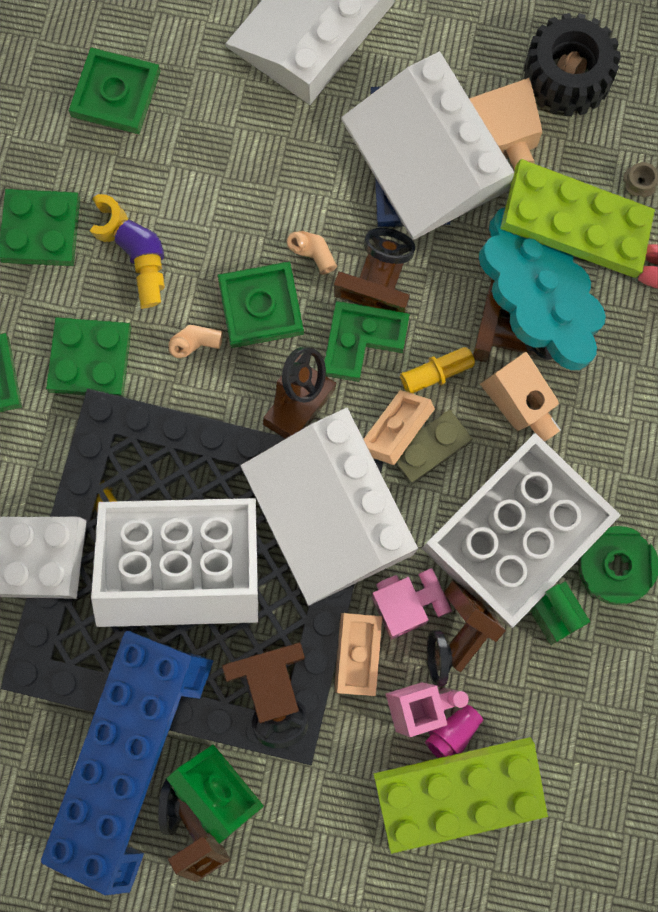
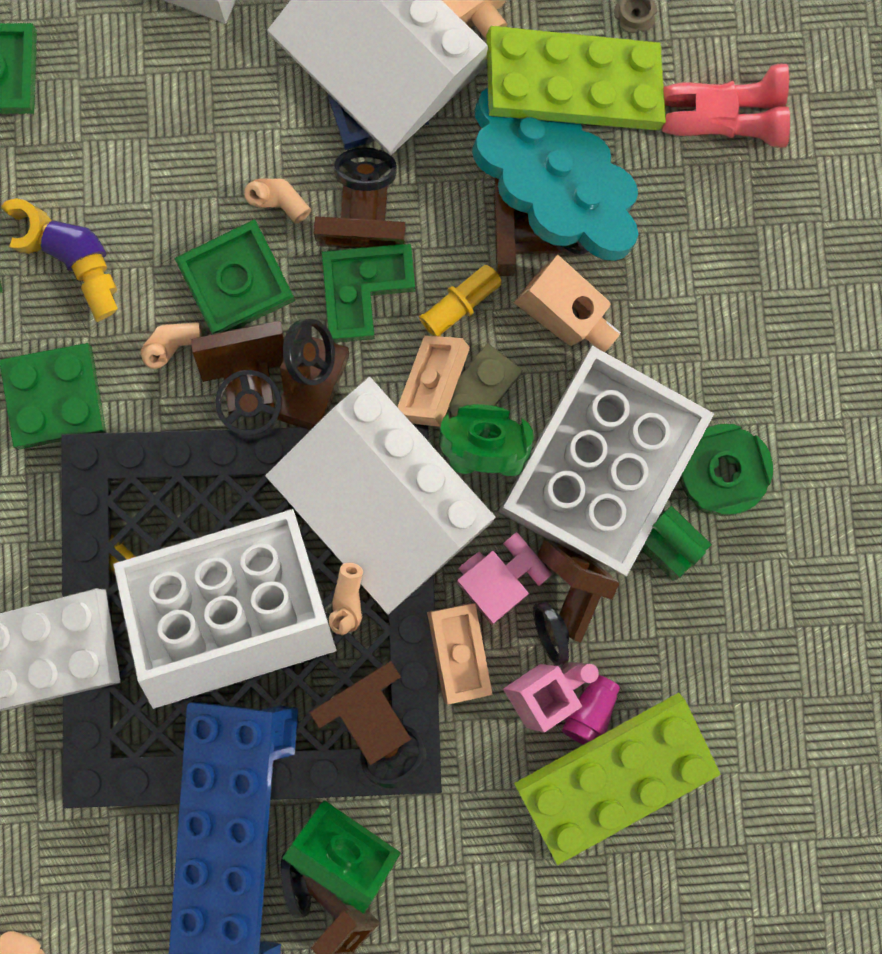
camera: 15 degrees left, 5 degrees up
(248, 371) = (244, 363): none -> reddish brown piece
(277, 585) = (346, 600): none -> light nougat arm
(427, 485) = (485, 440): none -> green plate

